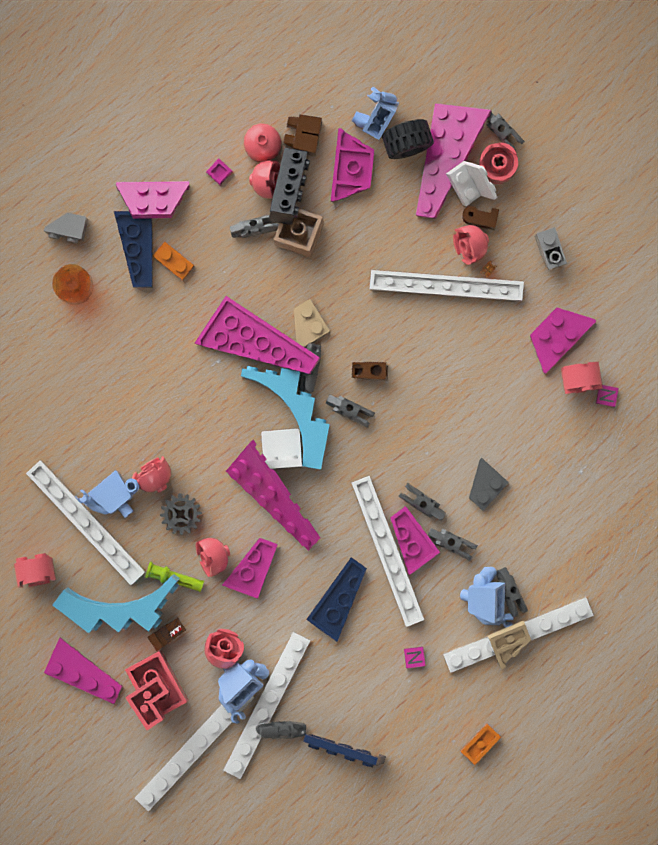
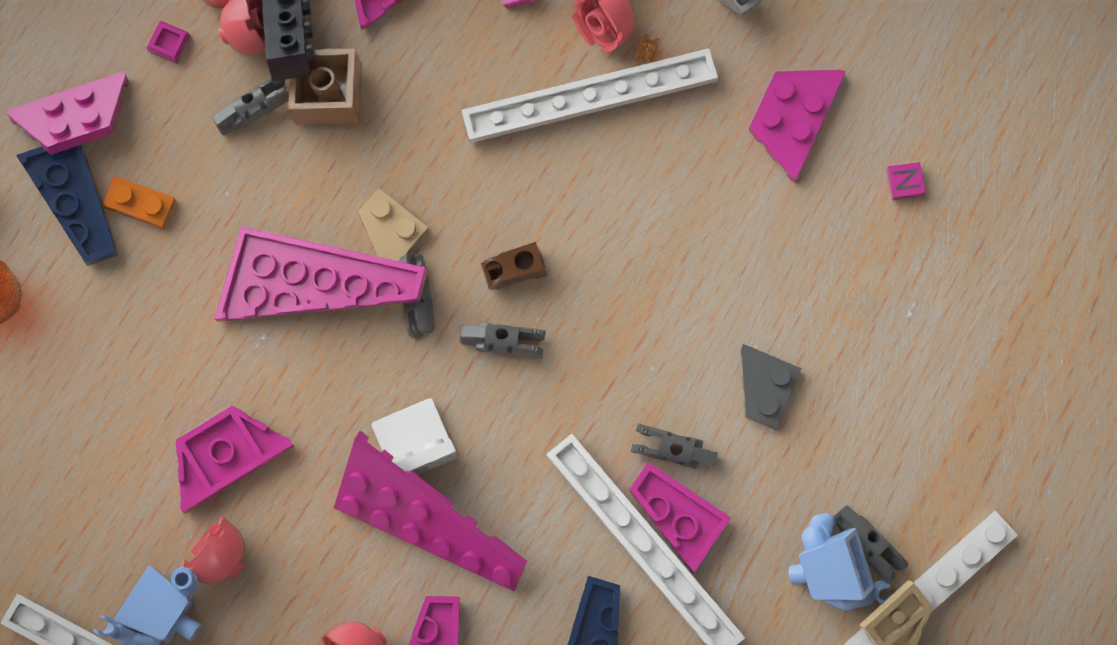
camera: 25 degrees left, 10 degrees down
(175, 420) = (223, 454): none -> dark pink wing
(187, 507) = (276, 617): dark grey gear -> none
(285, 386) = (422, 359): medium azure arch -> none
(442, 540) = (727, 495): dark grey hinge -> none
(581, 377) = (856, 161): coral brick -> none

